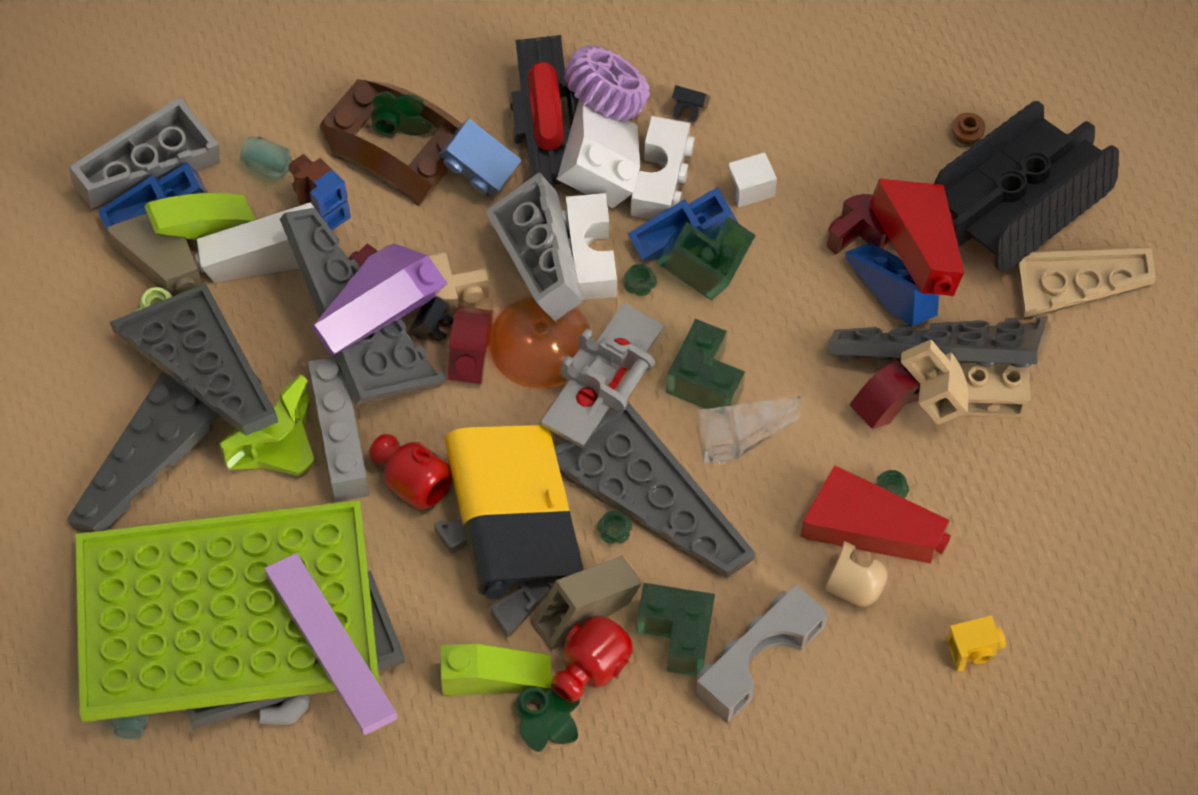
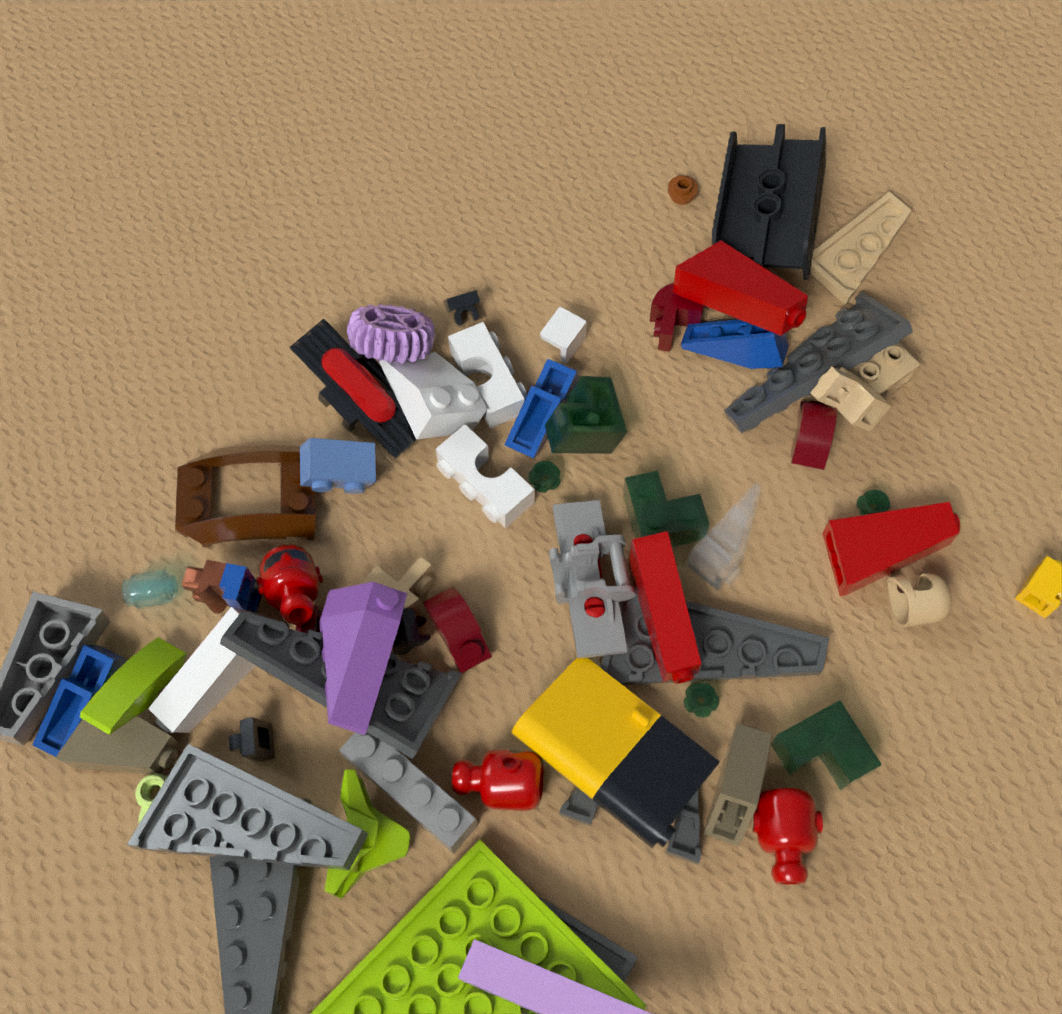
camera: 35 degrees left, 5 degrees up
(256, 317) = (254, 740): none -> black tile
(371, 219) = (290, 582): none -> red piece
(398, 114) = (240, 472): dark green plate -> none
(492, 670) = (715, 906): lime slope -> none
(532, 356) = (507, 604): clear orange dish -> none
(538, 243) = (445, 503): light grey wedge -> none
(549, 722) = (794, 915): dark green plate -> none
(637, 430) = (664, 607): none -> red slope
(790, 622) = (905, 765): light grey arch -> none

